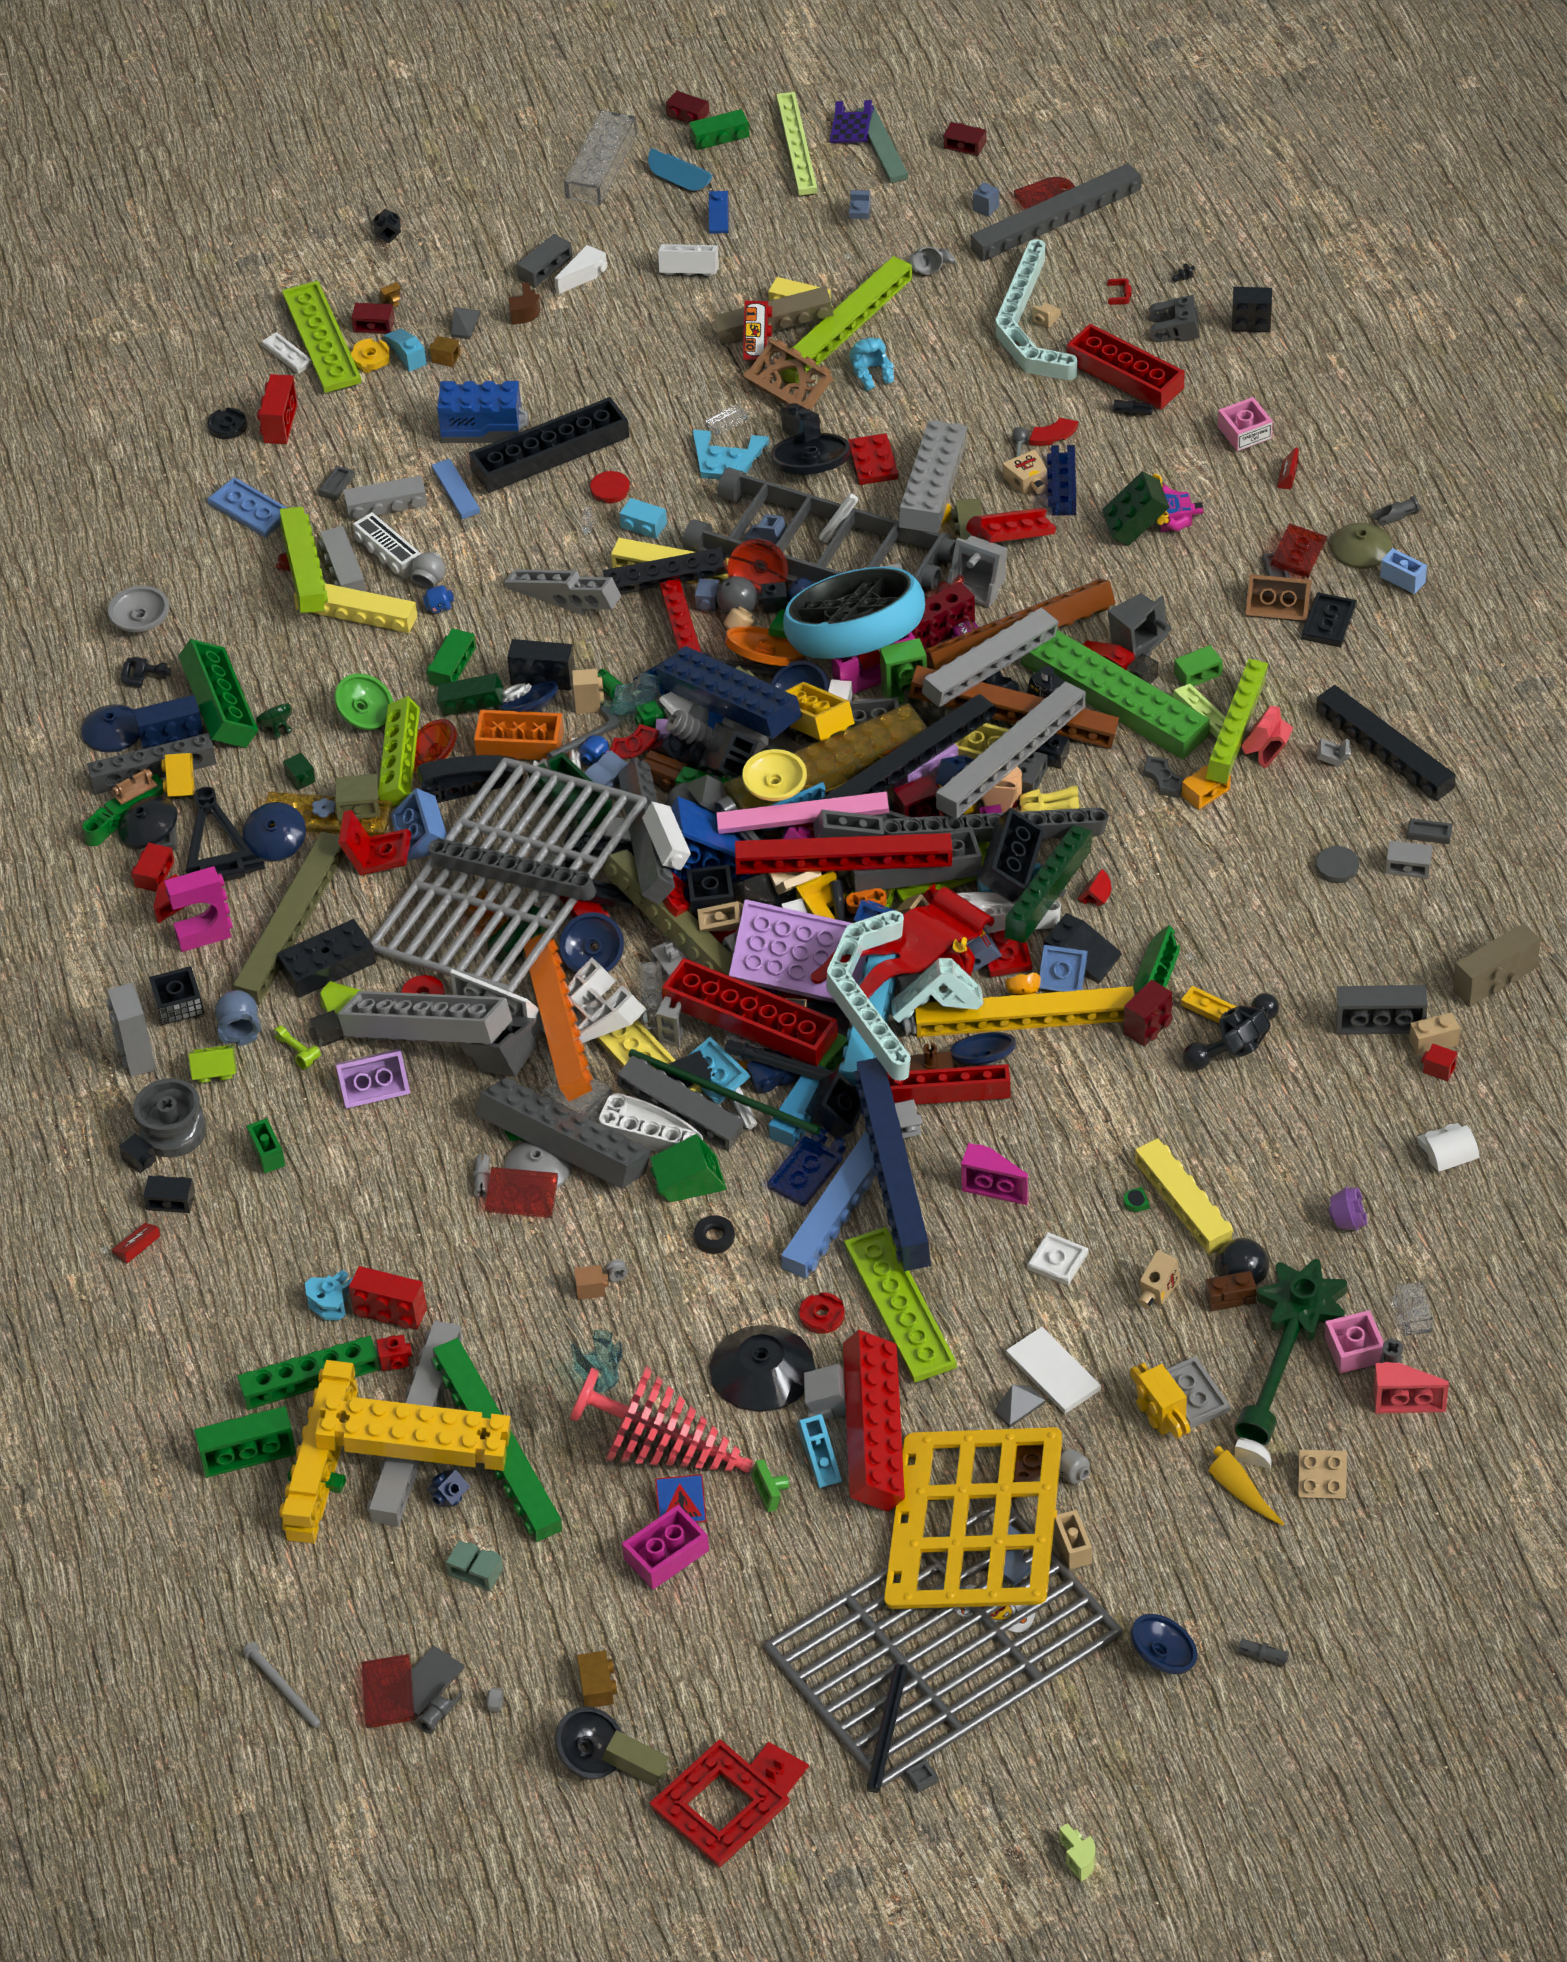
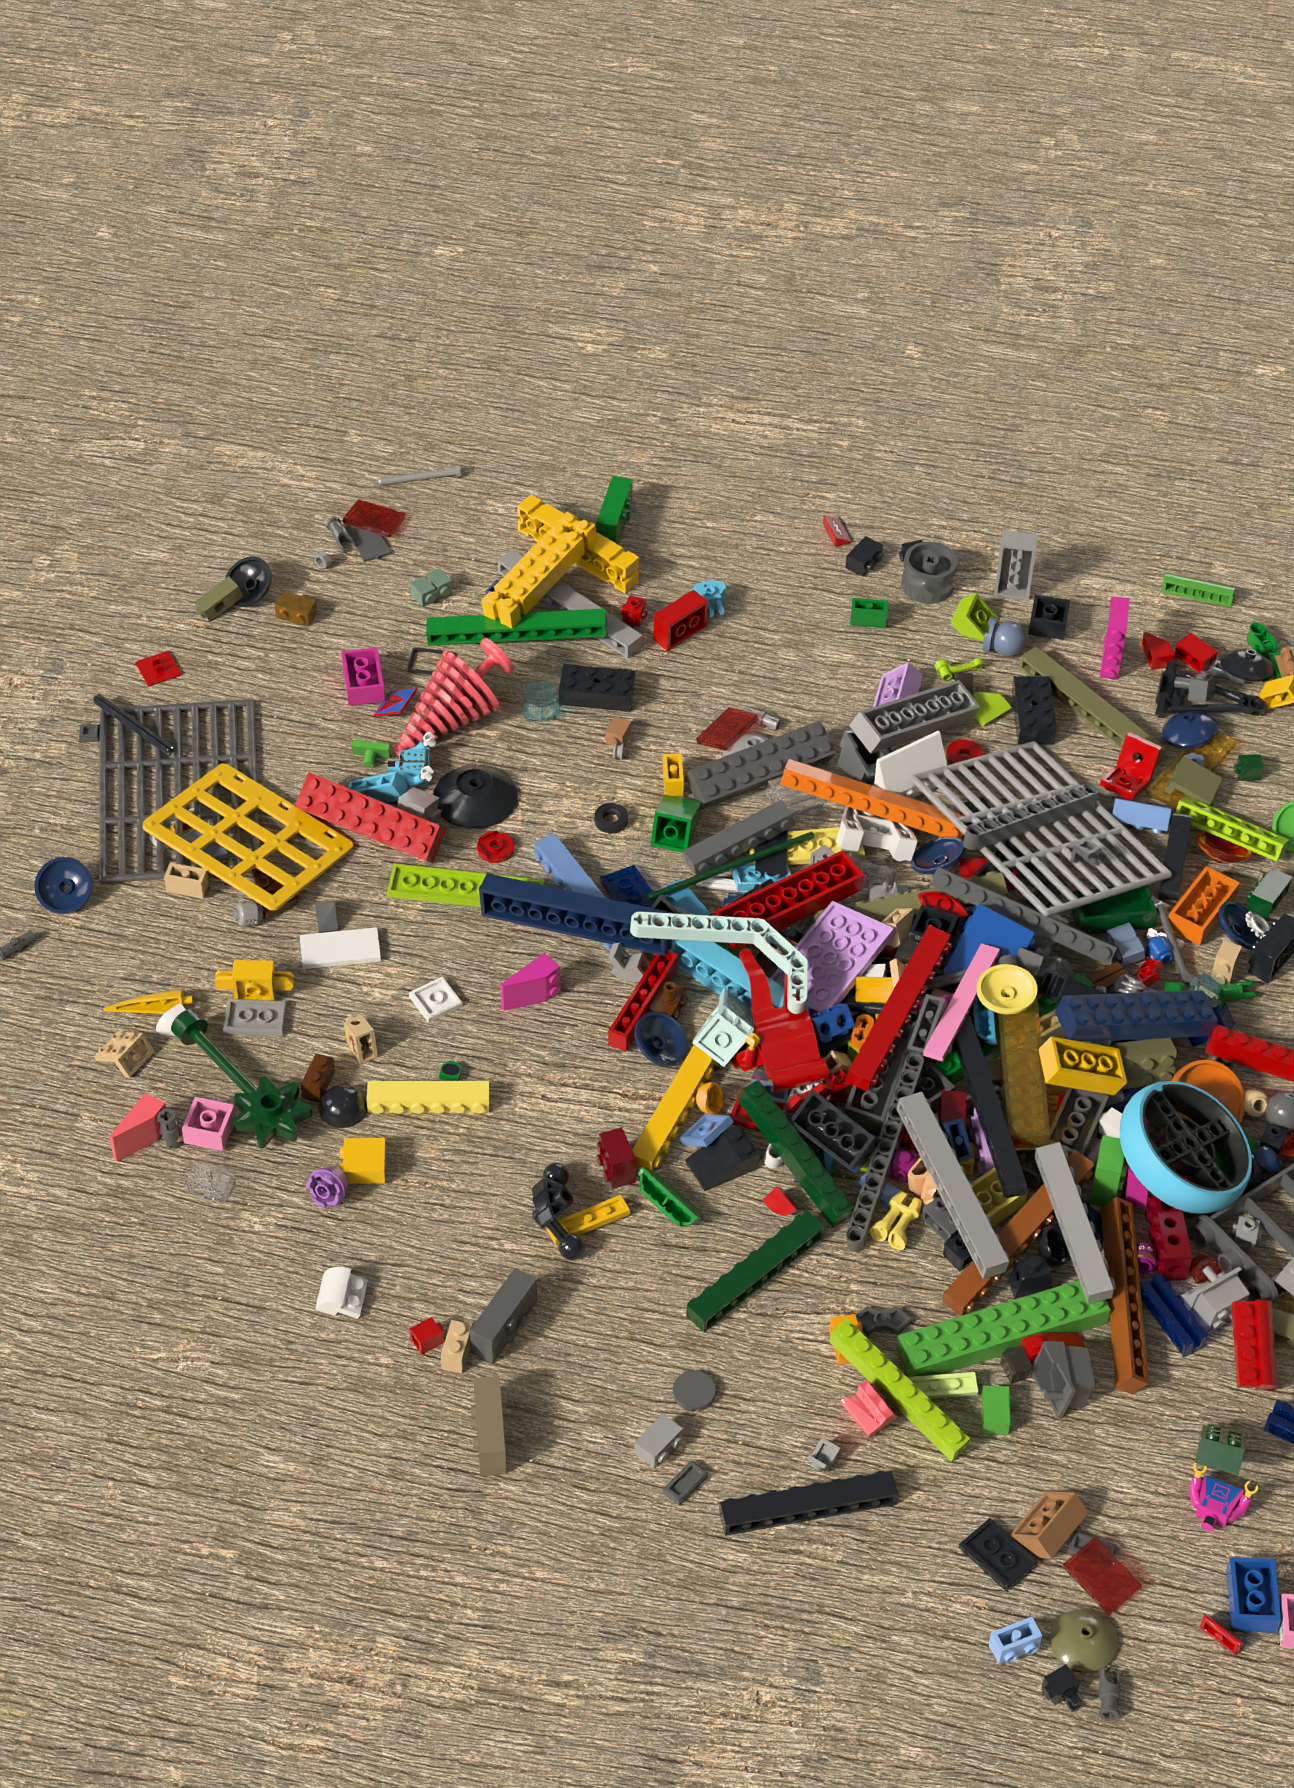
camera: 115 degrees right, 0 degrees up
(44, 902) = (1198, 589): none -> bright green brick
(215, 833) = (1200, 686): none -> dark grey brick
(302, 1373) = (654, 566): green brick -> none
(536, 1330) = (597, 687): none -> black brick
(539, 803) = (1085, 850): none -> dark grey panel
(605, 1505) = (422, 650): none -> black piece
(625, 1200) = (673, 774): none -> yellow brick
(644, 1122) = (735, 811): white beam -> none
(666, 835) = (984, 894): white brick -> none
(722, 1844) = (136, 649): red plate -> none
(764, 1432) = (415, 763): none -> medium azure torso
(977, 891) = (795, 1102): none -> red tile
(1012, 594) = (1173, 1315): none -> clear blue brick
(1185, 873) = (754, 1271): none -> dark green brick
(1245, 458) = (1253, 1595): none -> blue brick
(1297, 1201) = (363, 1160): none -> yellow brick
(1416, 536) = (1062, 1686): none -> black brick

